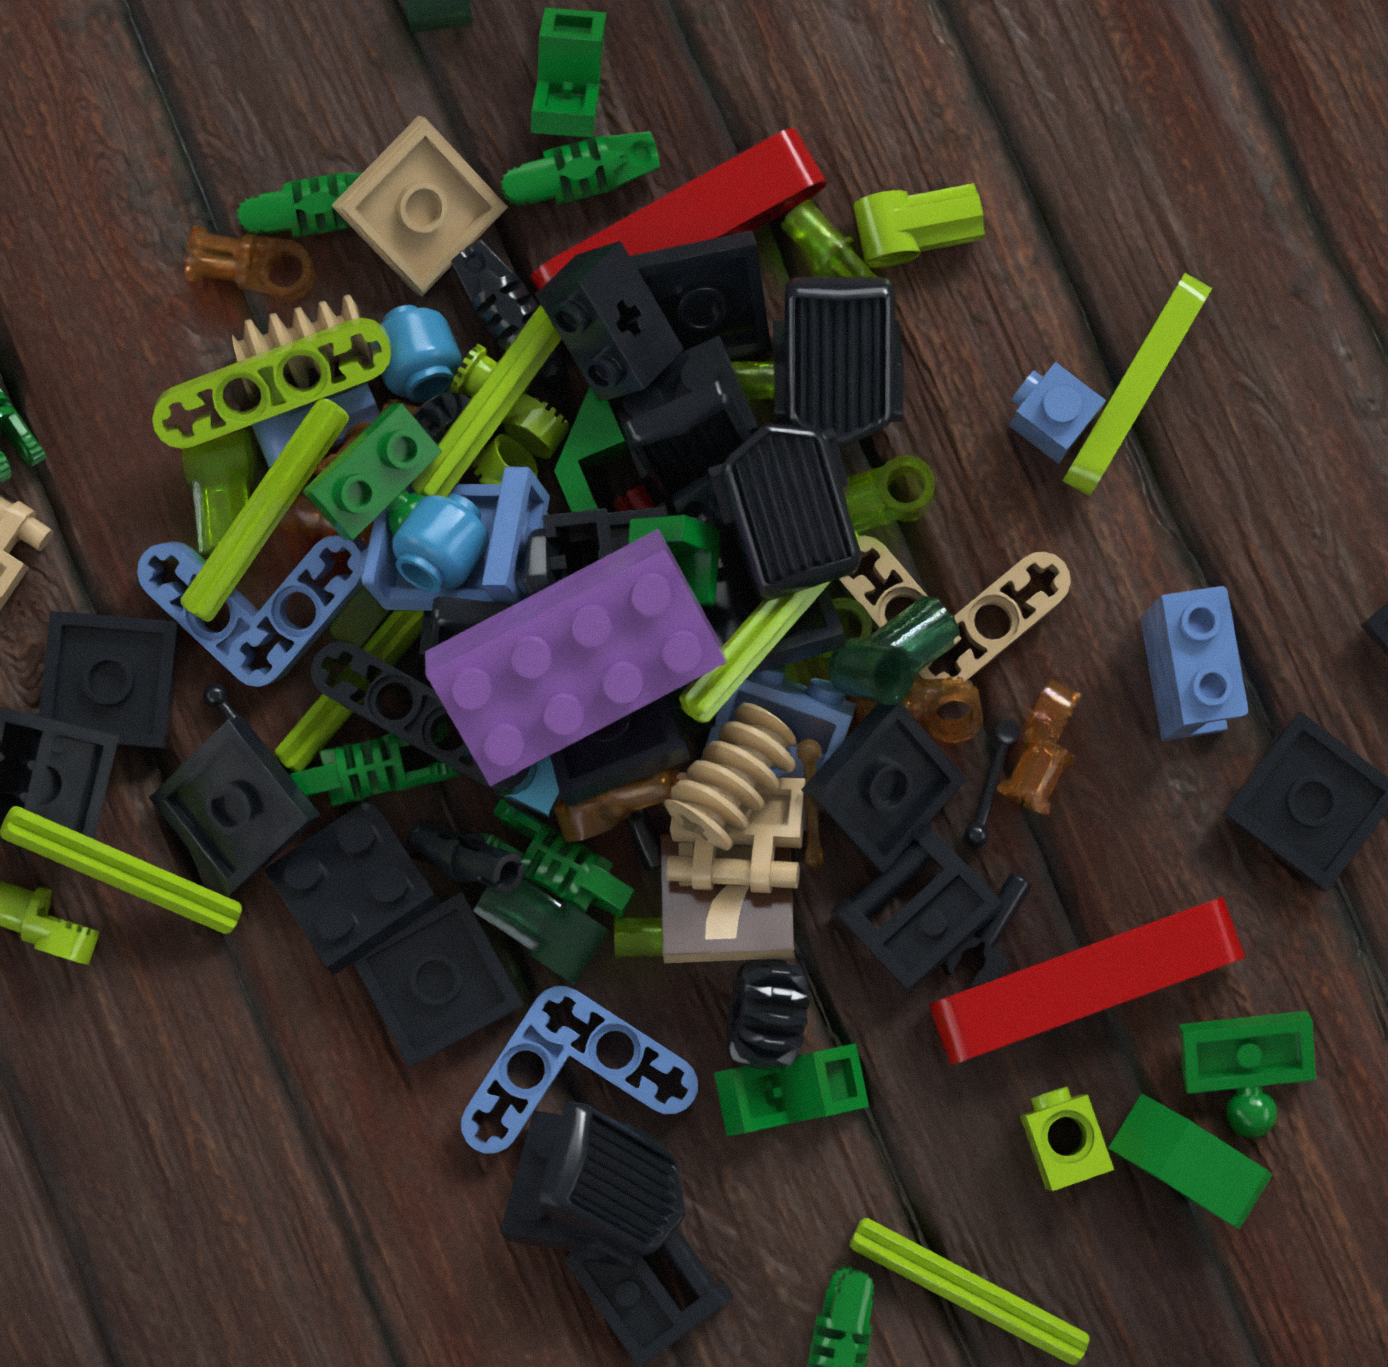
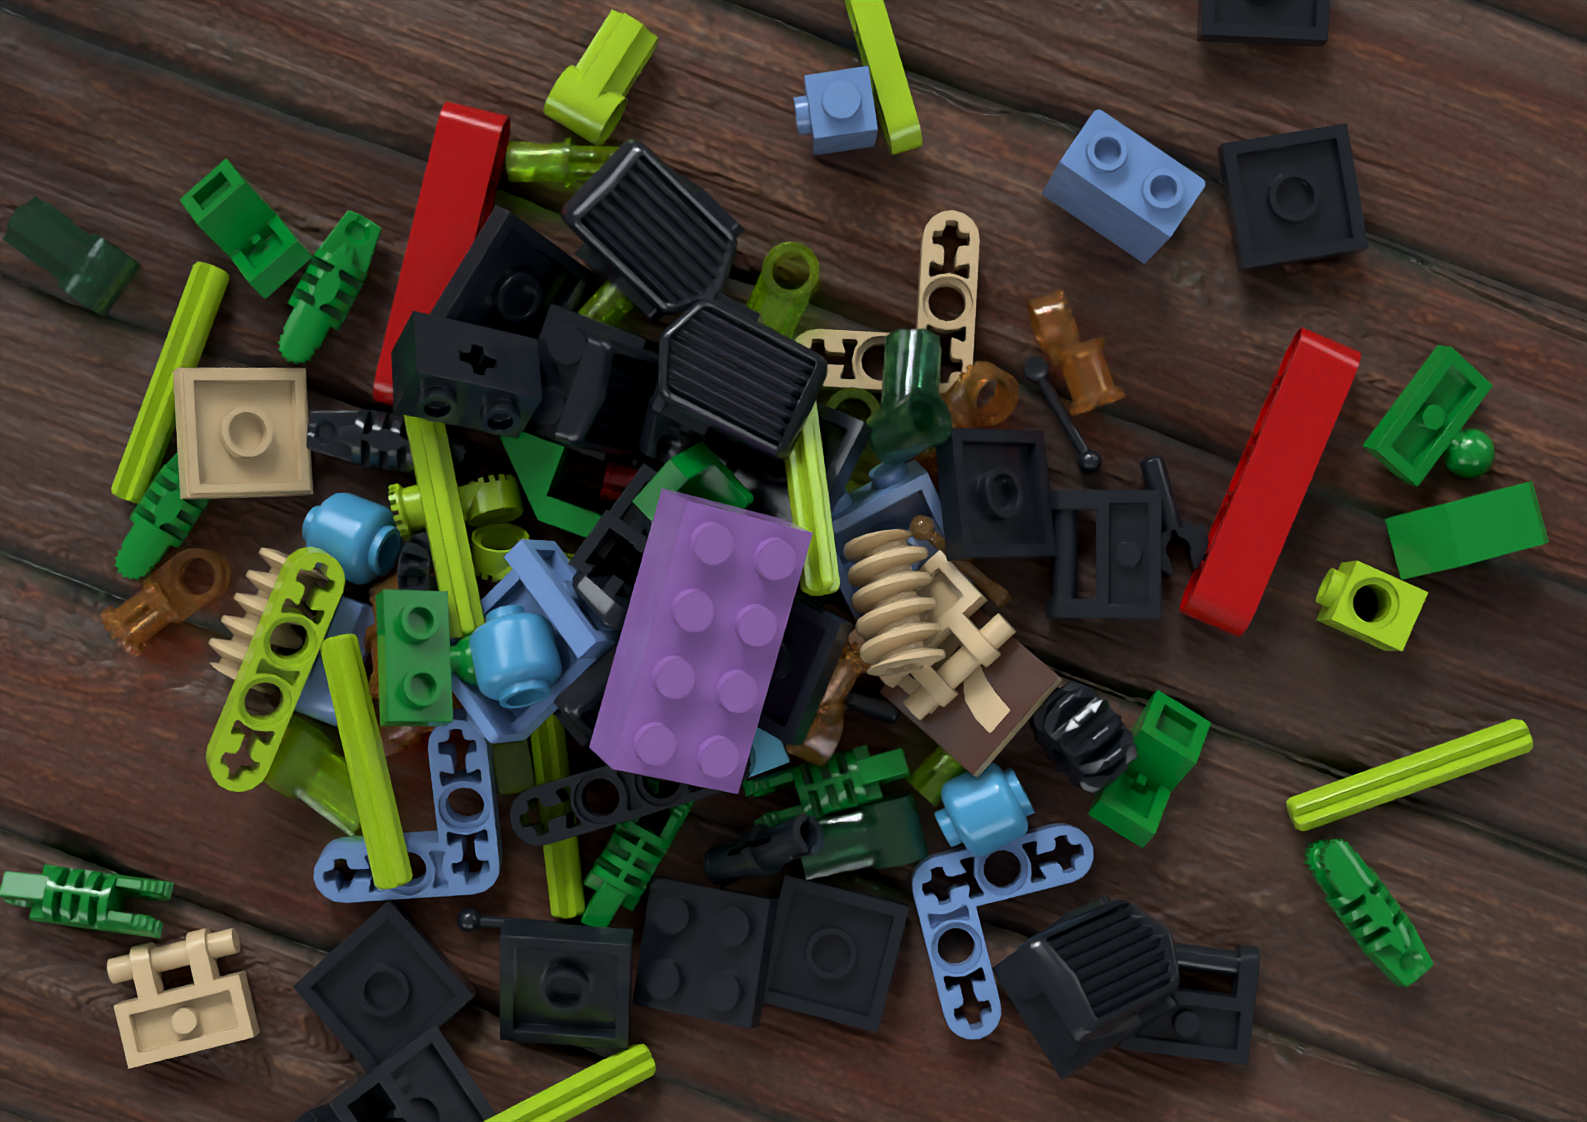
camera: 50 degrees left, 5 degrees up
(378, 132) = (181, 350): none -> lime axle
(646, 993) = (984, 810): none -> dark azure head

